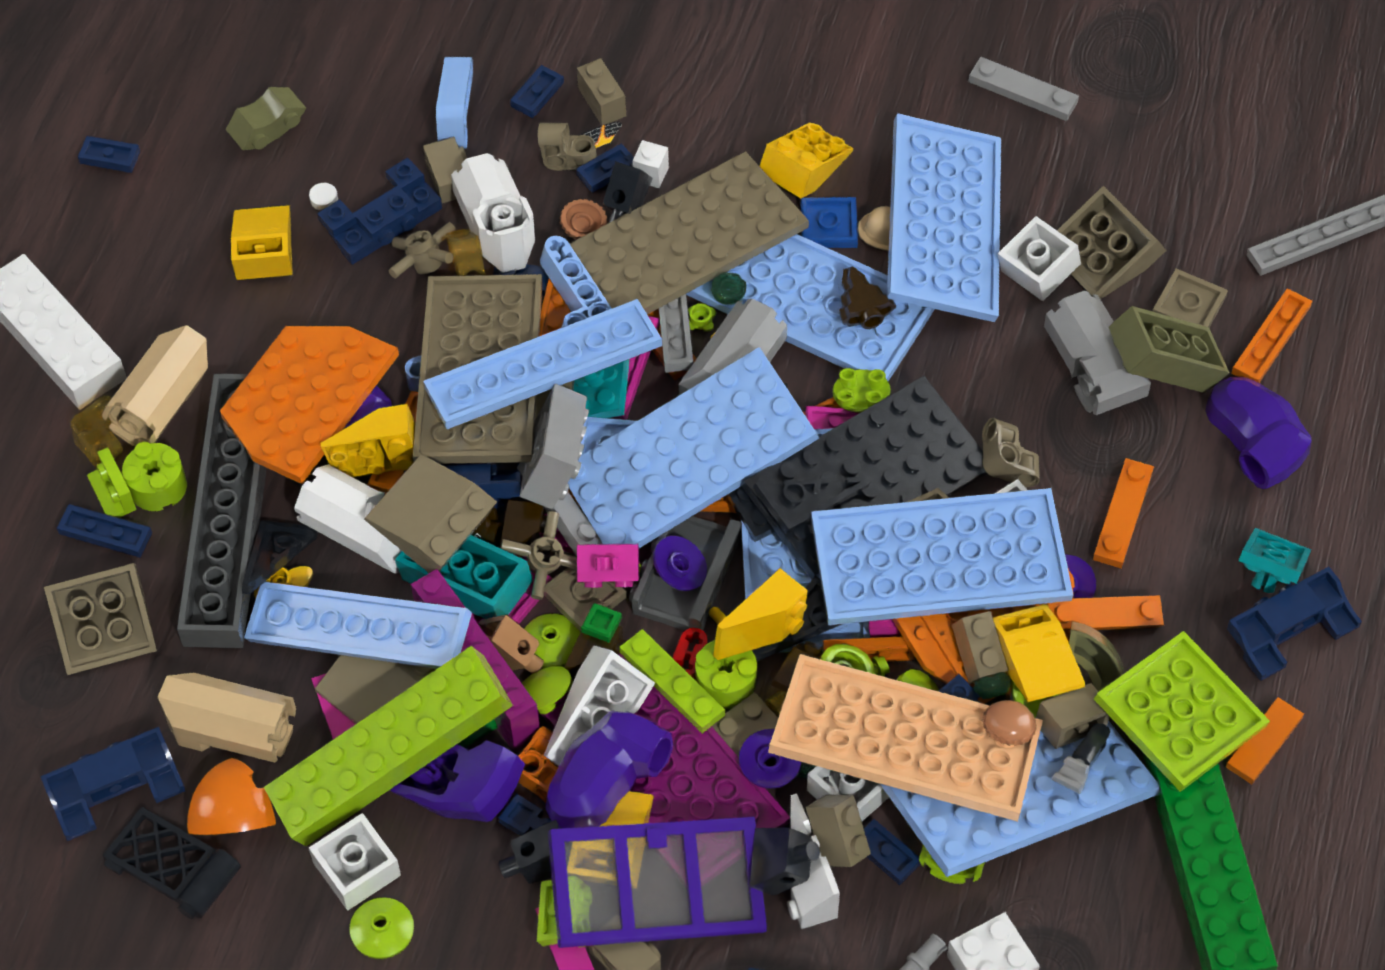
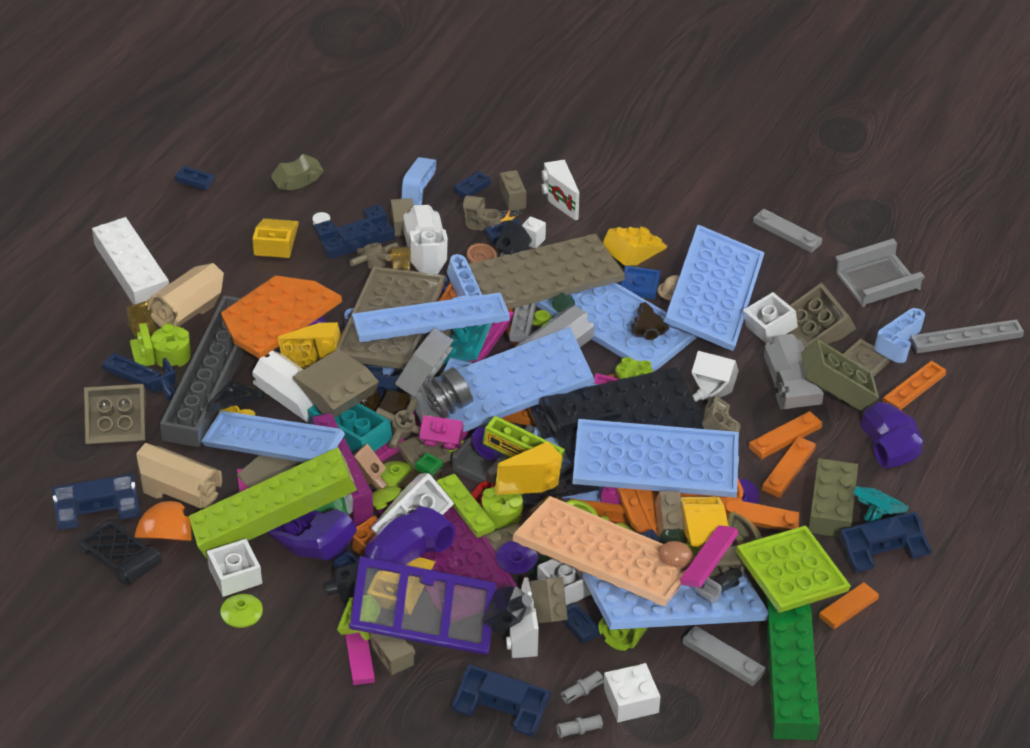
camera: 10 degrees right, 15 degrees down
(161, 543) = (165, 381): none -> dark blue bracket
(606, 496) = (445, 394): none -> flat silver wheel
(675, 78) = (560, 188): none -> white slope
(728, 563) = (512, 439): none -> lime brick
(981, 382) = (713, 375): none -> white piece
(1061, 720) = (709, 556): none -> dark pink tile
(1105, 457) = (785, 435): none -> orange plate
(1109, 865) = (724, 655): none -> light grey plate
(1171, 146) = (876, 273): none -> light grey piece
(1202, 560) = (833, 497): none -> olive brick
(1222, 268) = (894, 337): none -> light blue beam

